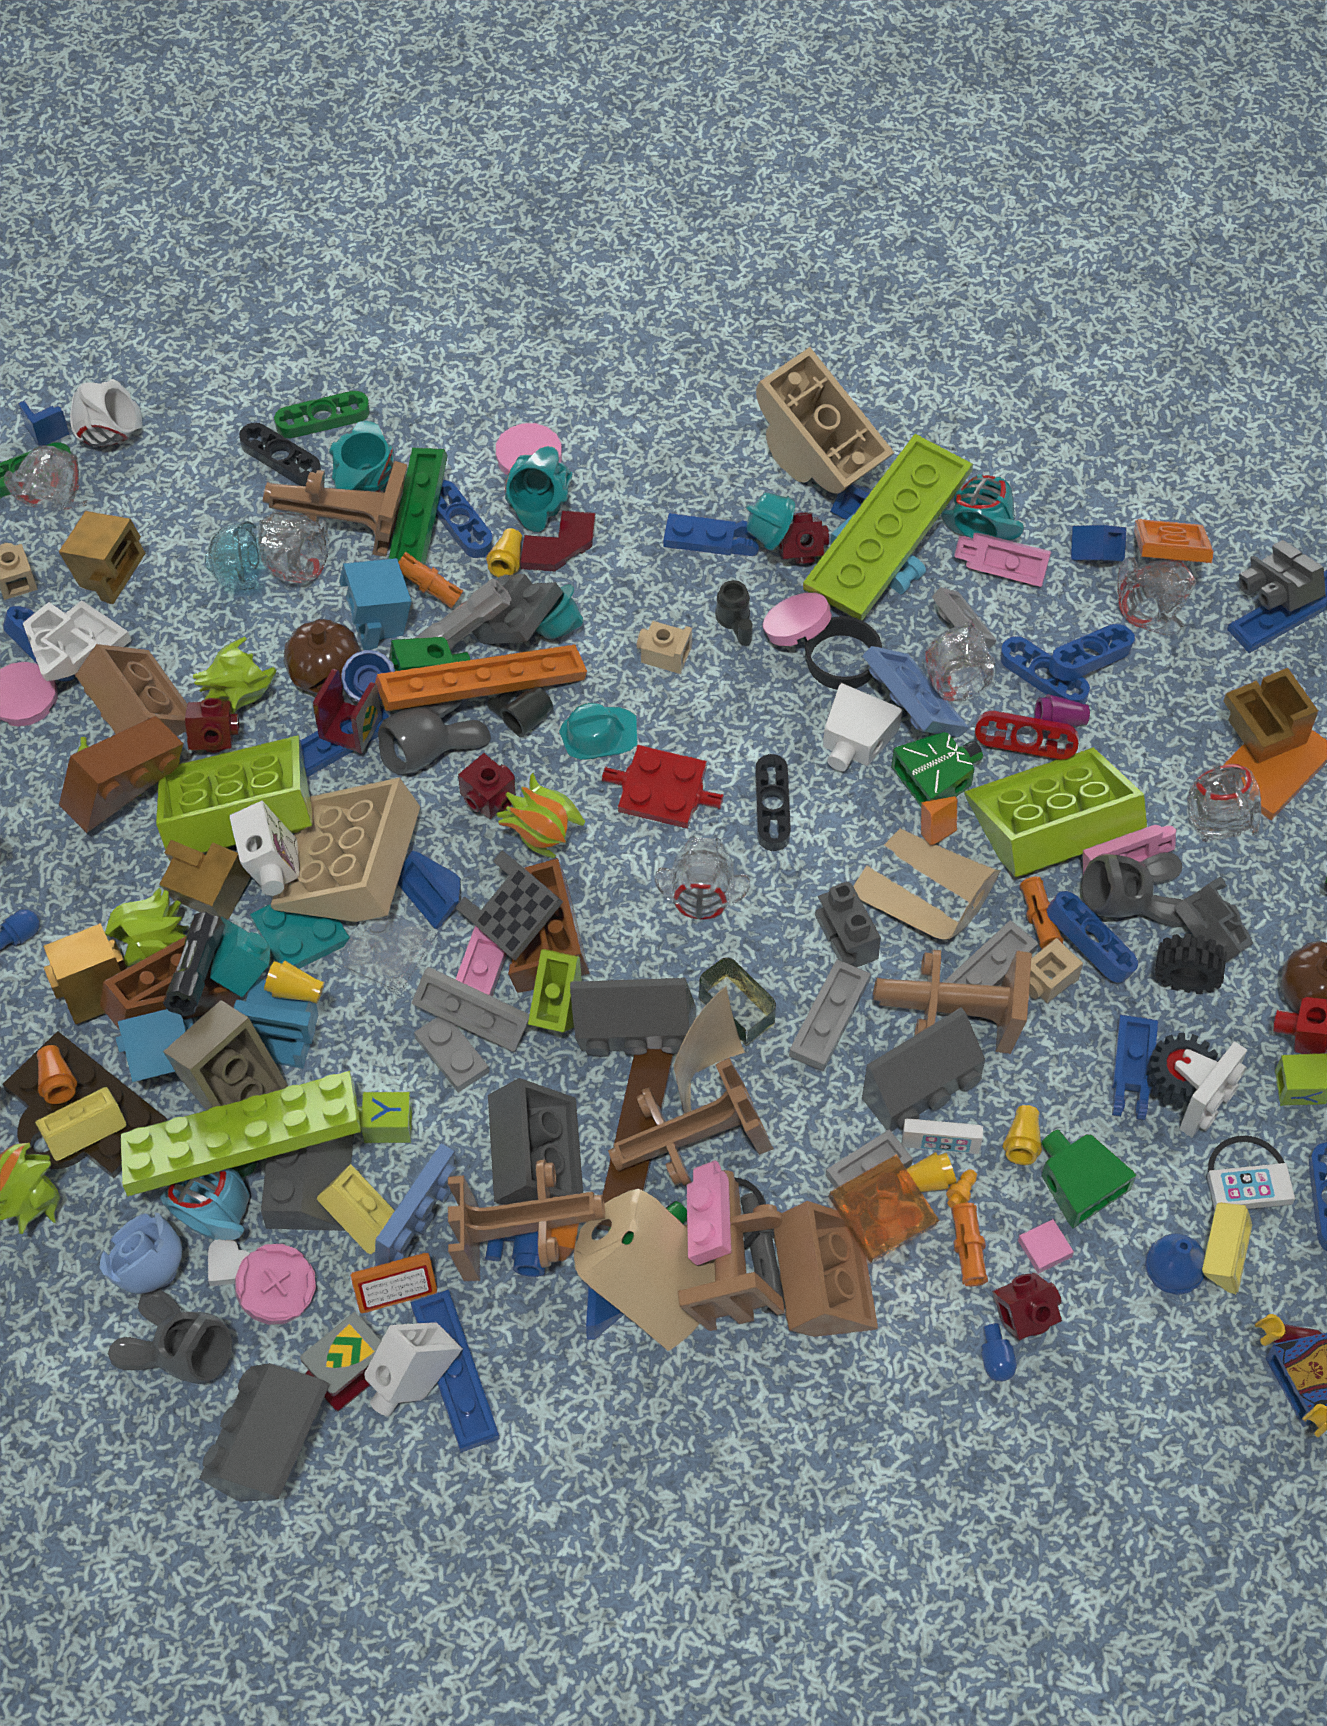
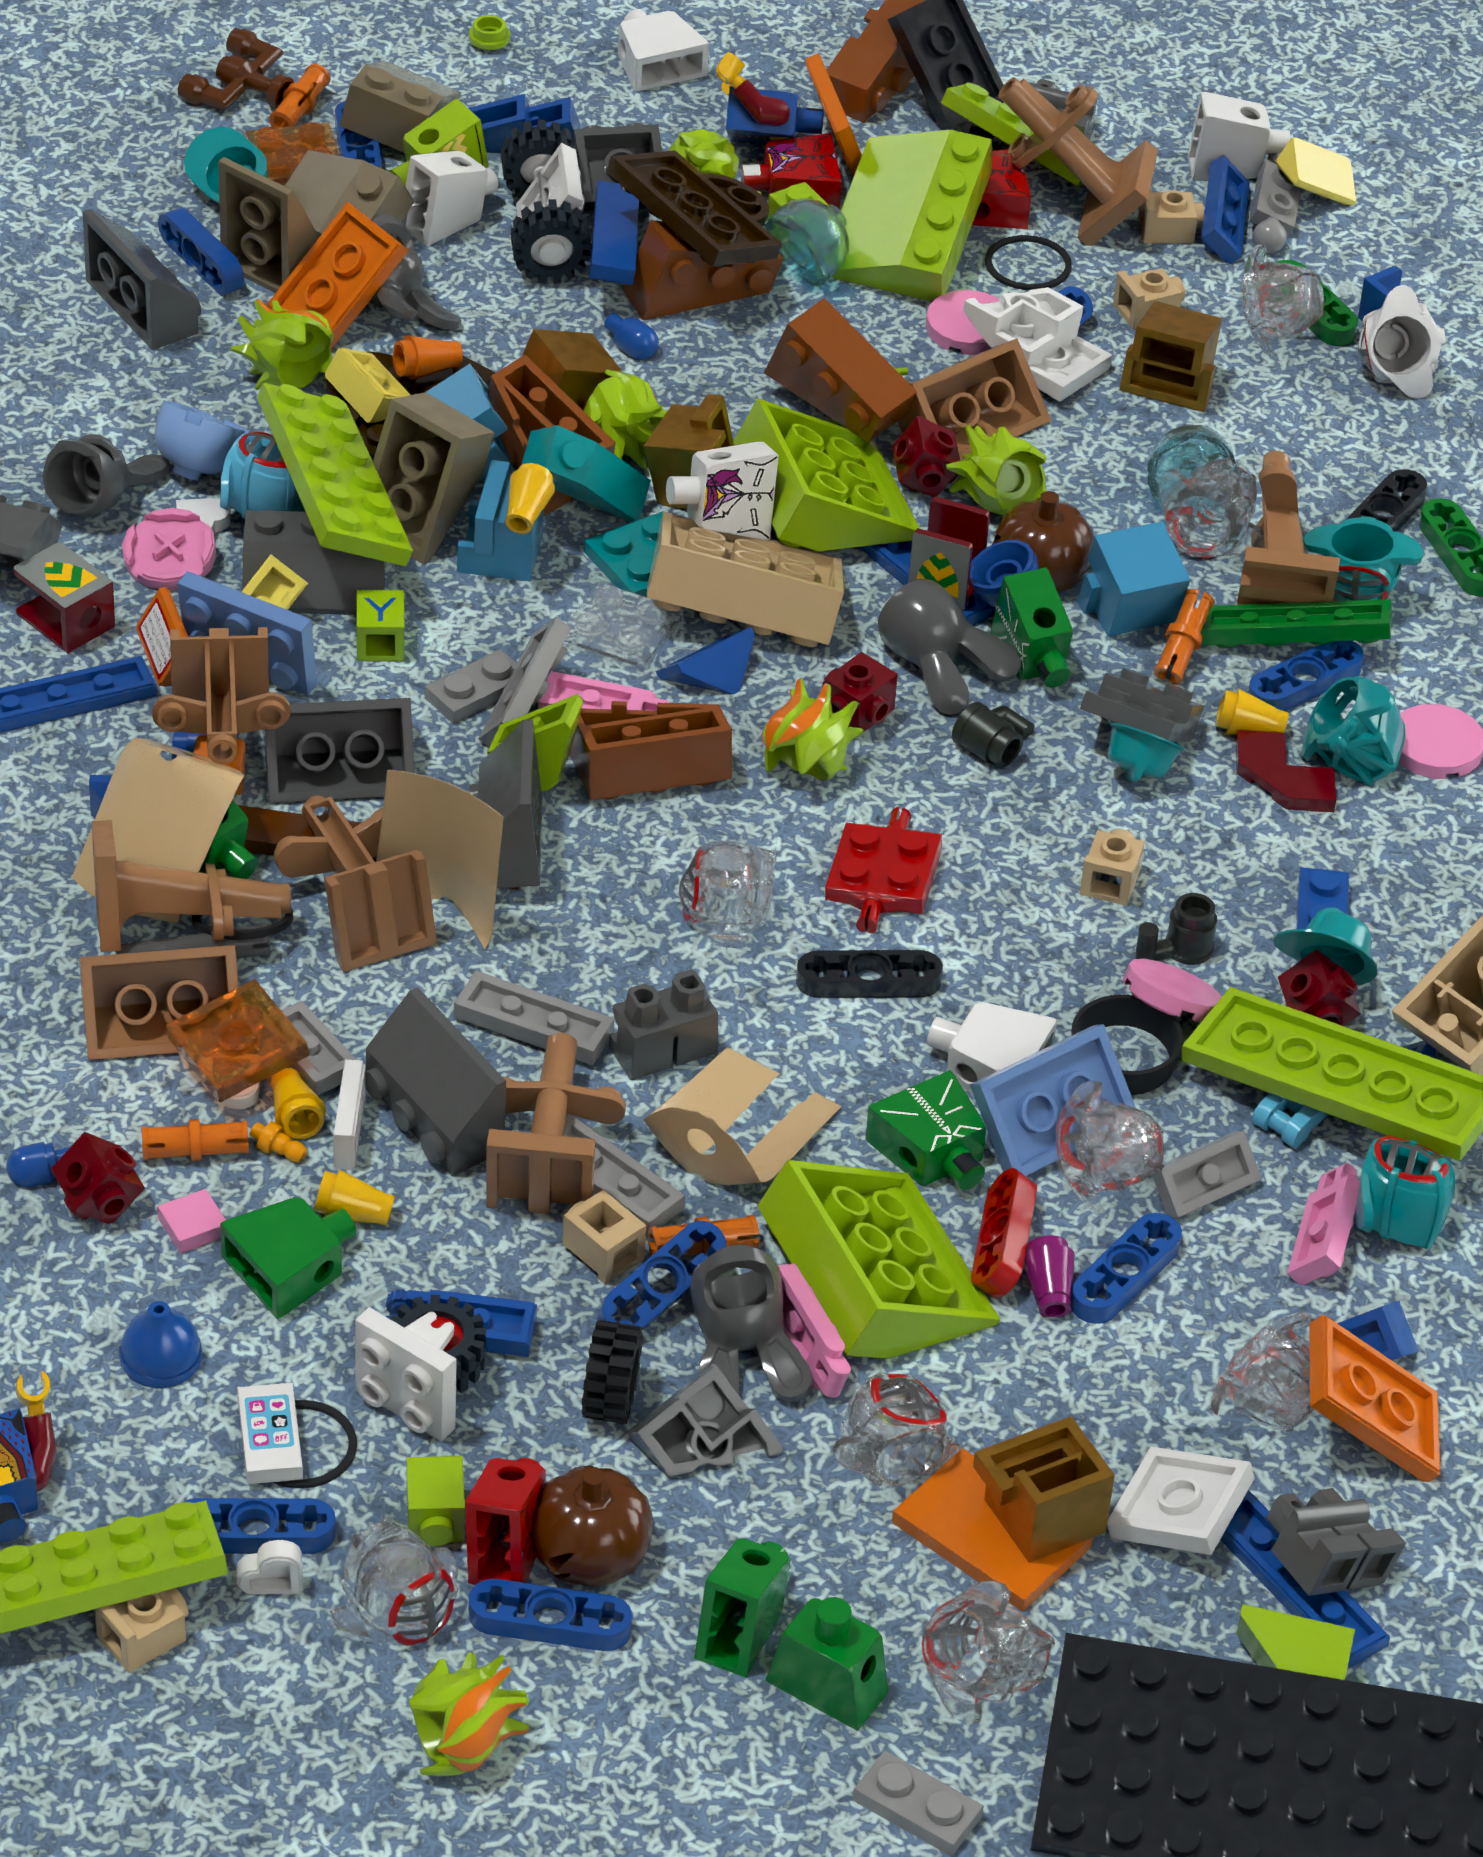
camera: 85 degrees right, 15 degrees down
(188, 980) = (516, 406): black axle -> none
(409, 1364) = (52, 634): white torso -> none
(480, 607) = (1117, 651): light grey axle -> none
(480, 677) = (1021, 675): orange plate -> none
(515, 910) = (664, 696): dark grey flag -> none
(599, 731) = (971, 810): teal piece -> none
(708, 1214) = (234, 862): bright pink hinge -> none
(755, 992) = (537, 903): piece -> none
(938, 819) = (844, 1127): orange slope -> none
(1084, 663) = (1161, 1288): blue beam -> none
(1228, 1246) = (177, 1397): light yellow slope -> none
(1251, 650) = (1180, 1500): none -> white plate

